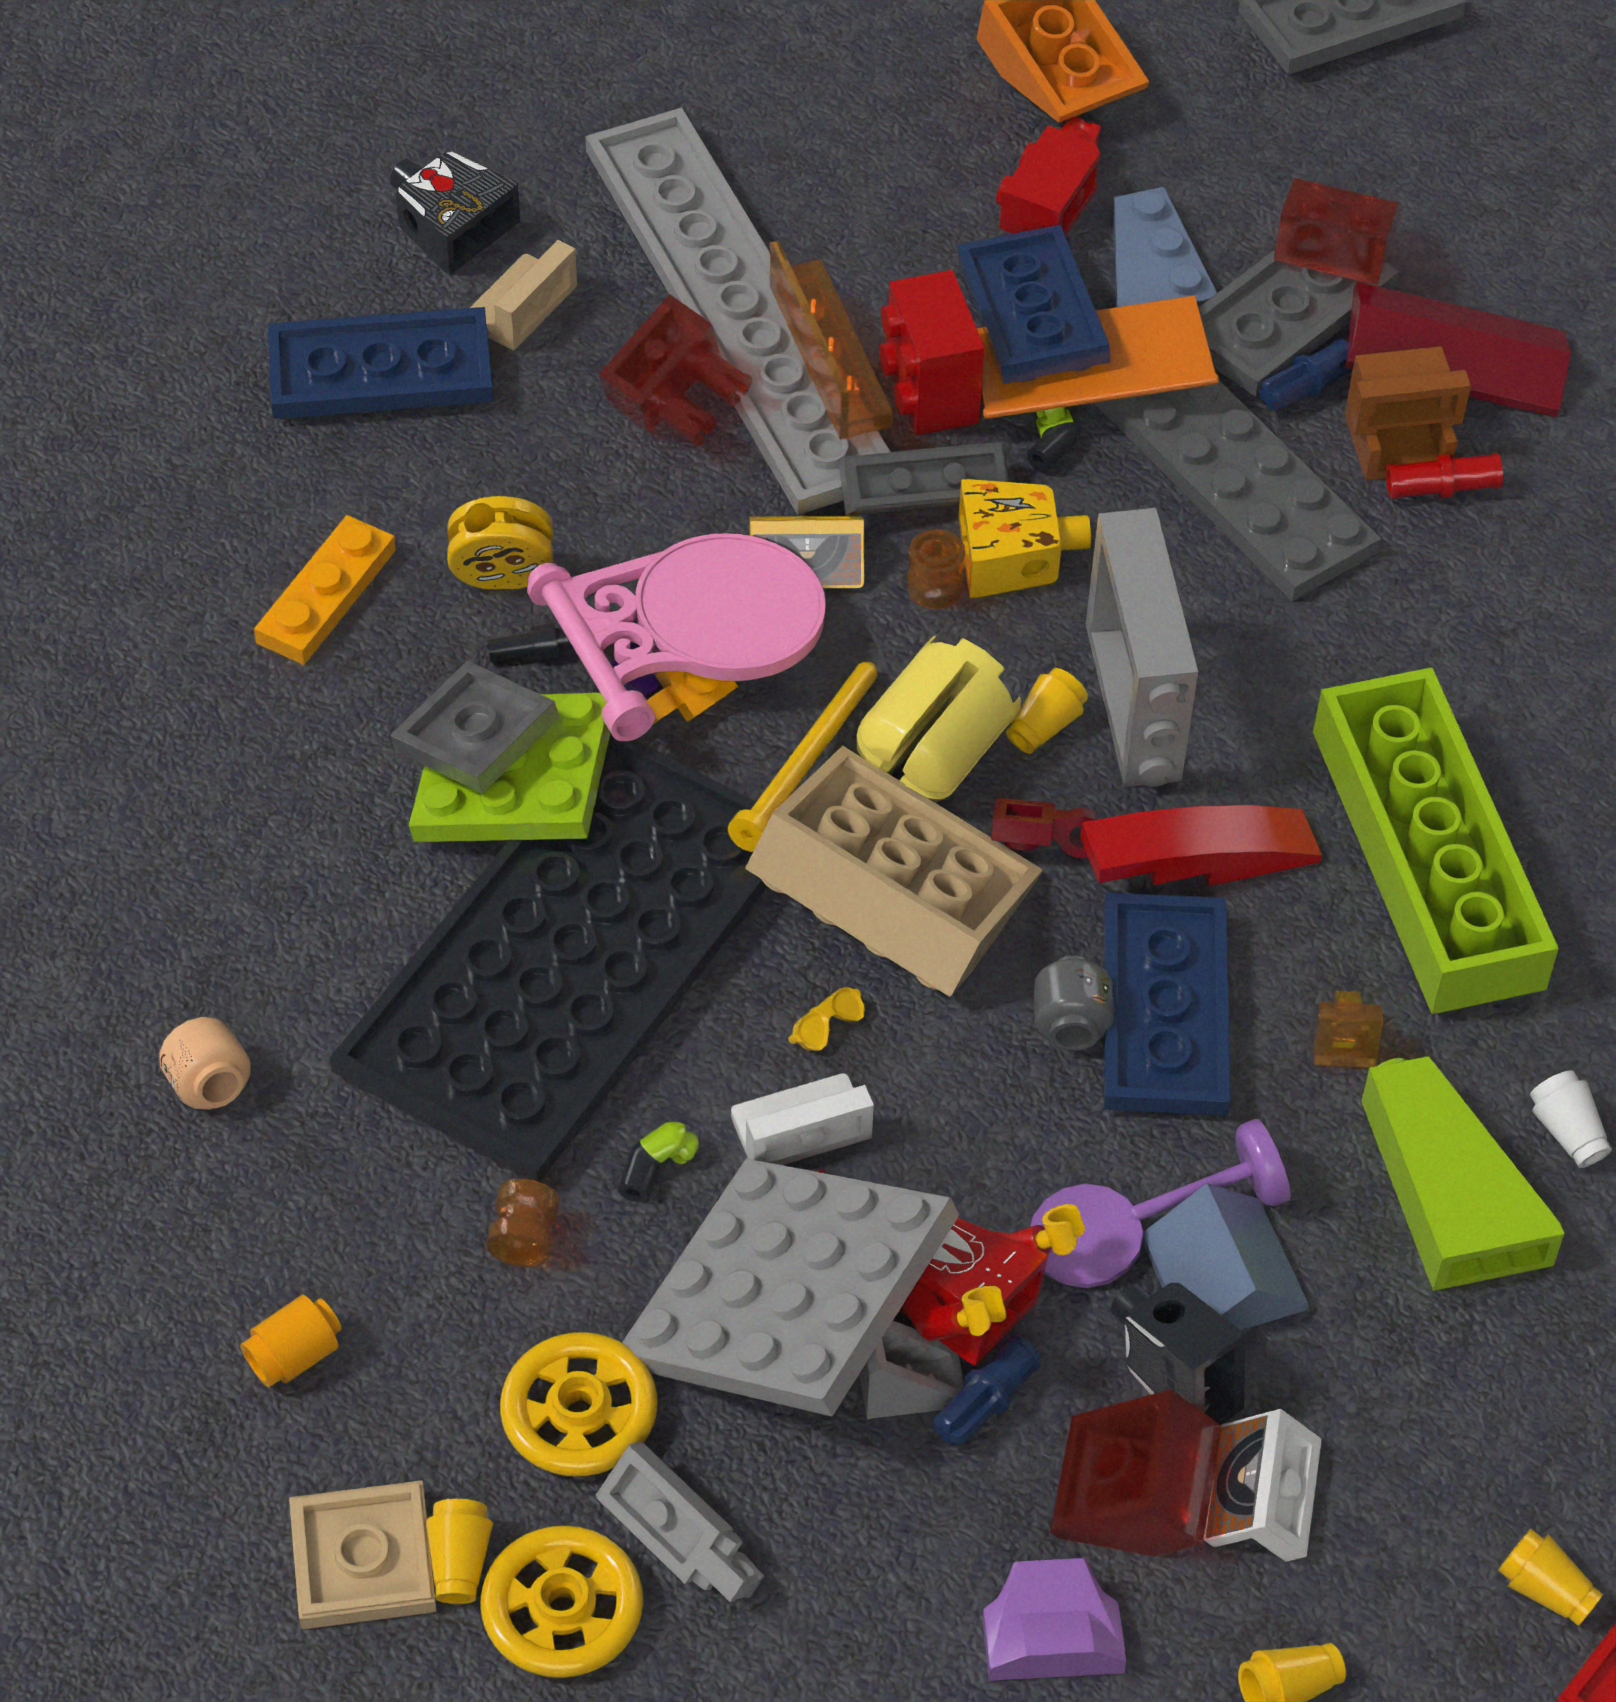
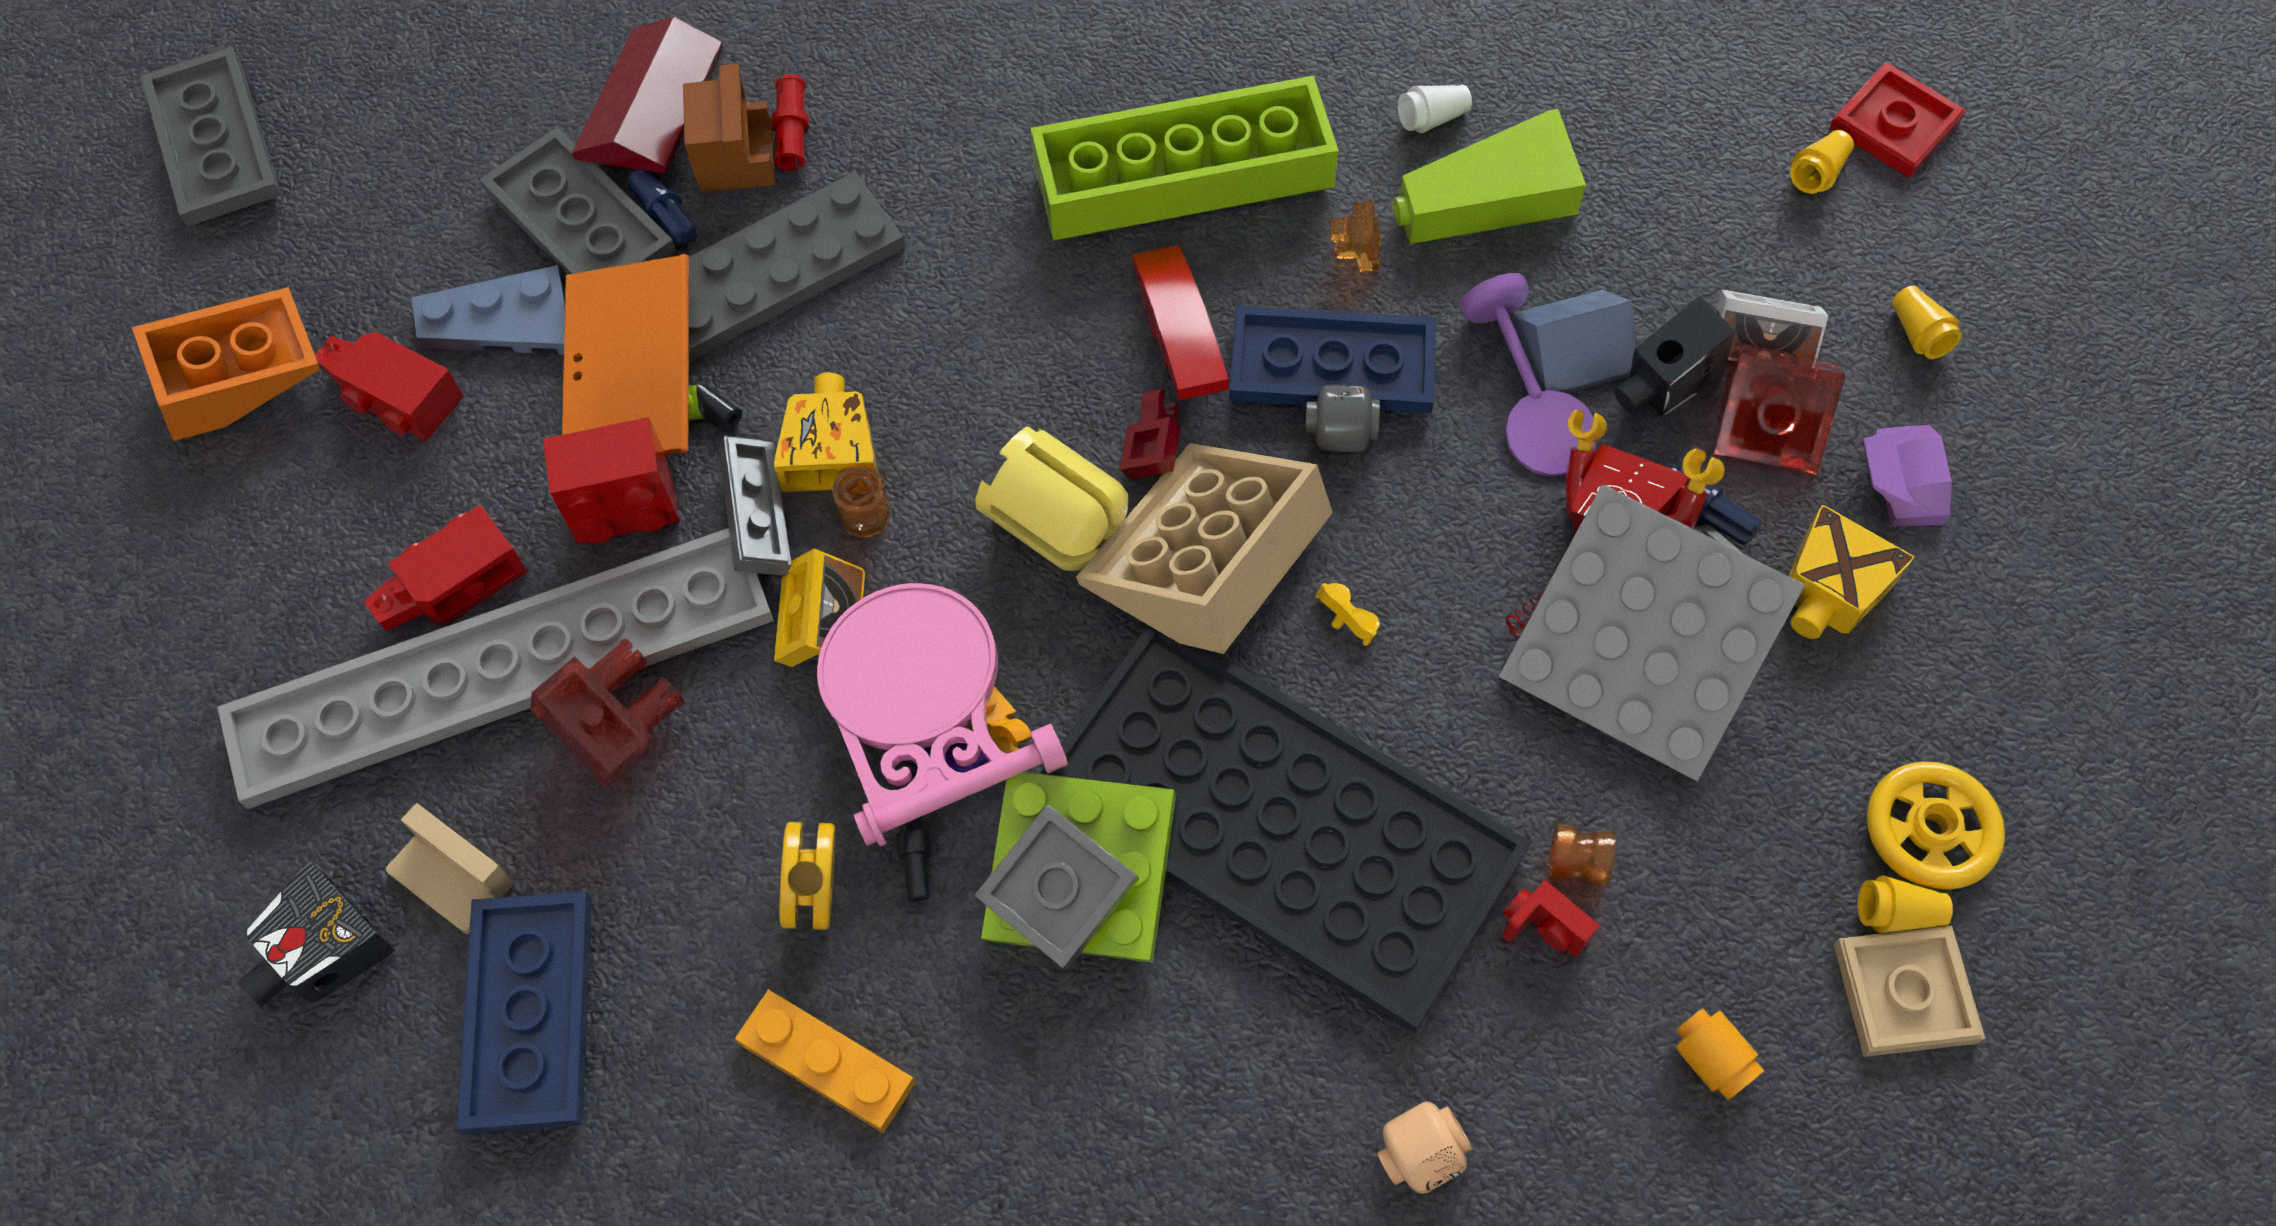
camera: 85 degrees left, 10 degrees up
(450, 1191) = (1557, 918): none -> red bracket
(550, 1362) = (1763, 771): yellow plate -> none
(651, 1151) = (1494, 752): arm -> none
(677, 1524) = (1859, 734): light grey hinge -> none
(749, 825) = (1169, 651): yellow bar -> none
(804, 1120) = (1455, 633): white panel -> none
(828, 346) = (583, 574): clear orange panel -> none
(851, 253) = (447, 573): none -> red hinge
(891, 1522) = (1843, 574): none -> yellow torso
(1033, 304) = (519, 403): dark blue plate -> none
(1048, 708) = (1017, 412): yellow cone -> none
(1141, 647) = (999, 290): light grey window -> none
(1336, 231) = (509, 154): clear red slope -> none

